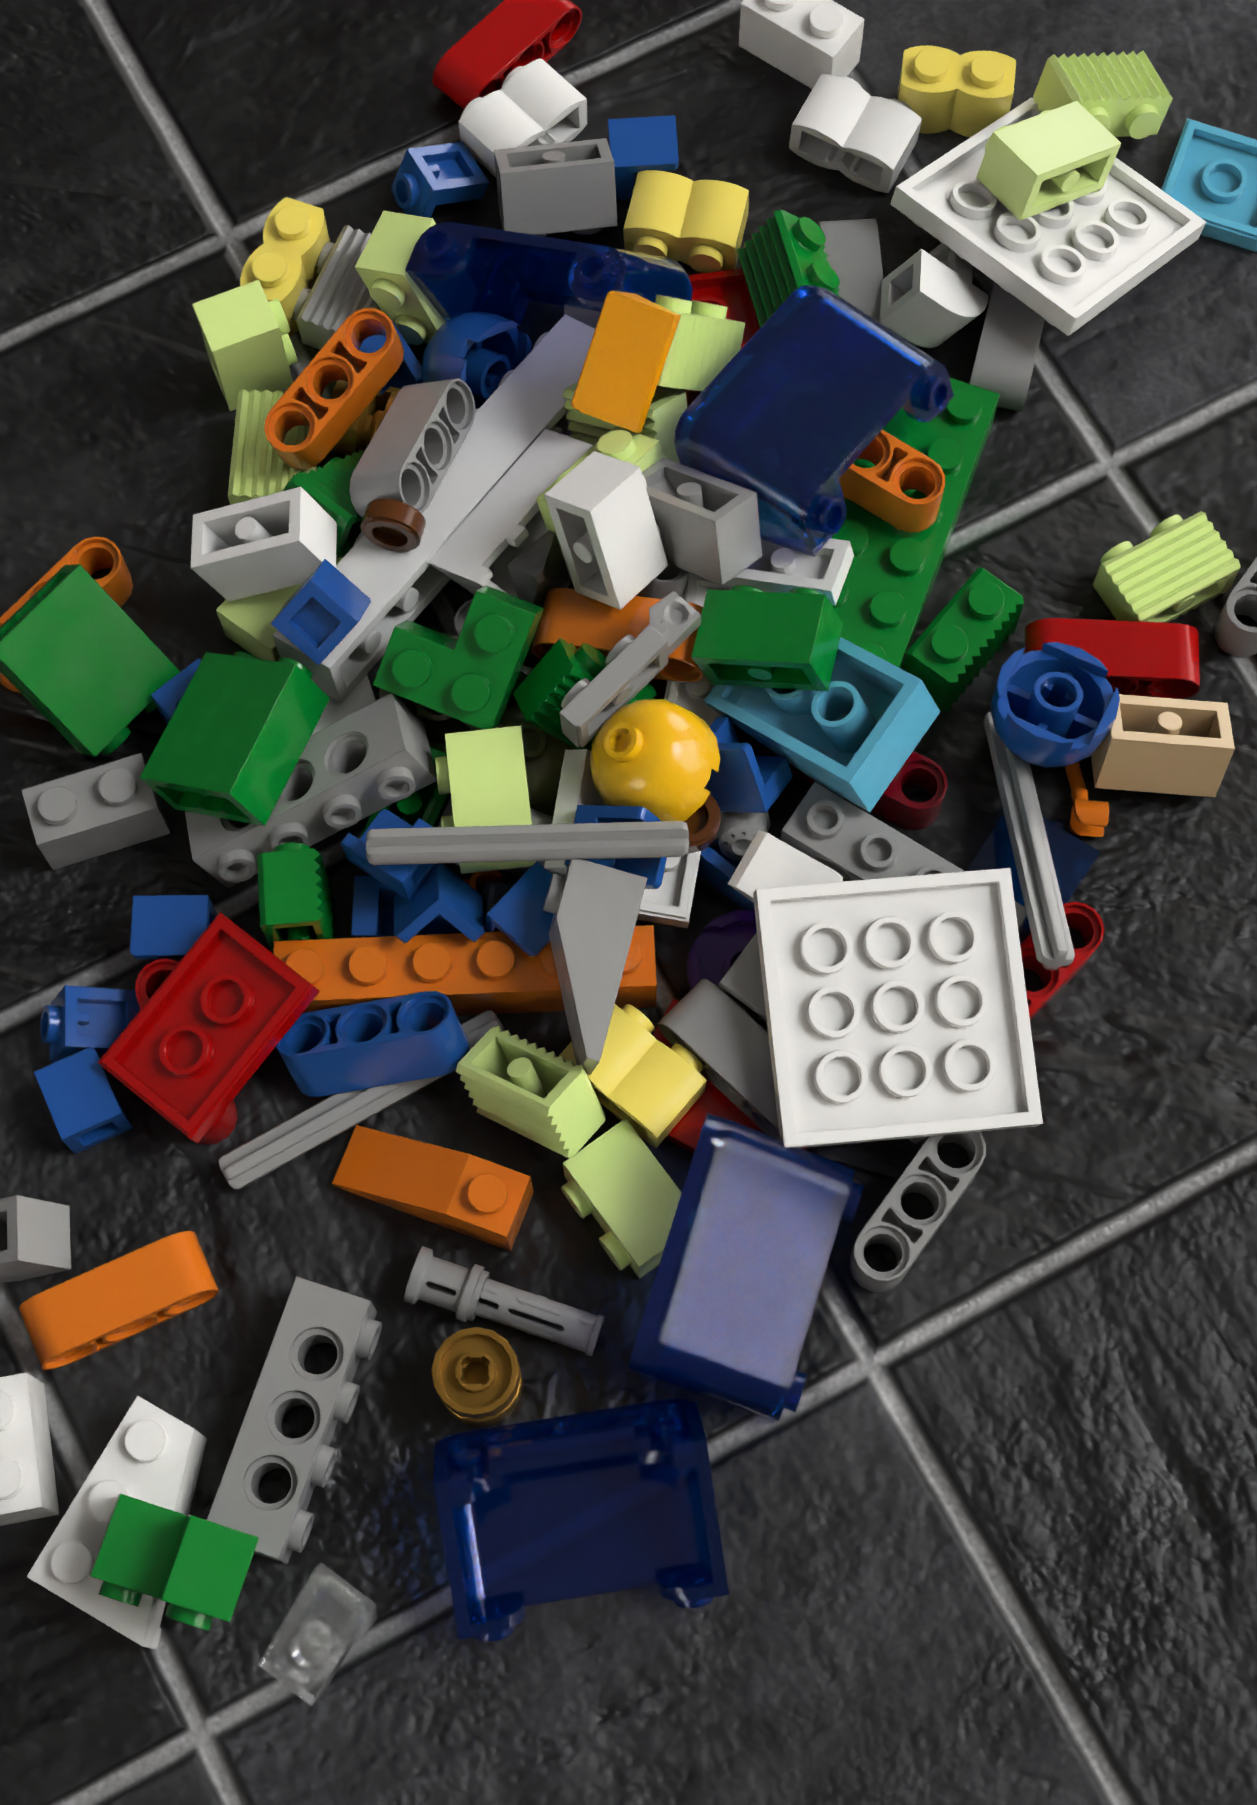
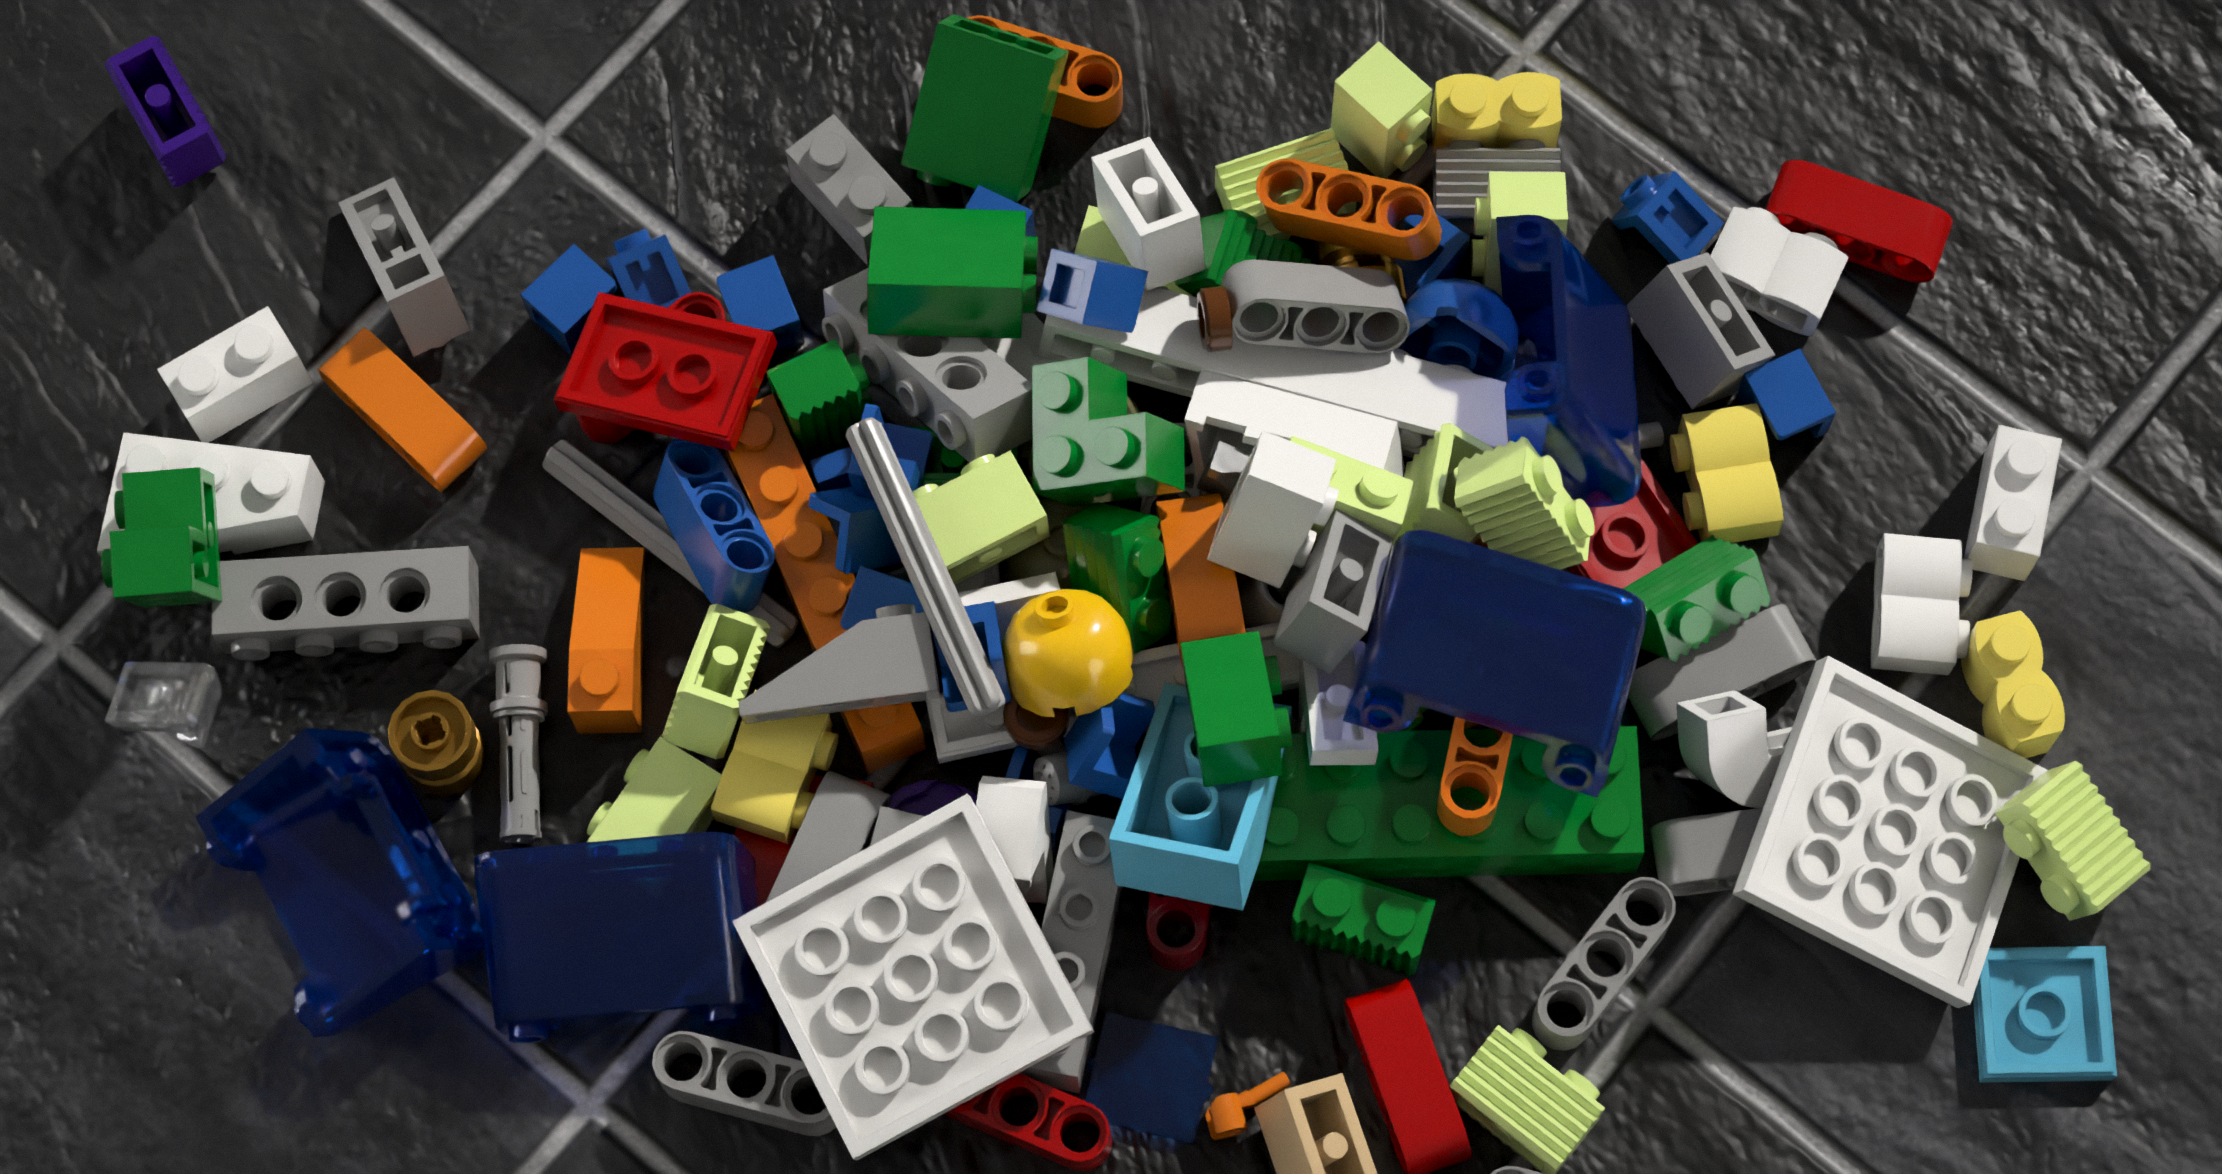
camera: 70 degrees right, 0 degrees up
(625, 360) = (1463, 453): light orange slope -> none
(628, 669) = (1140, 588): light grey hinge -> none
(1031, 854) = (1161, 1053): light grey axle -> none
(1047, 160) = (1939, 800): yellowish green brick -> none
(1053, 705) = (1304, 1021): blue cylinder -> none
(1069, 447) = (1613, 934): none -> light grey beam

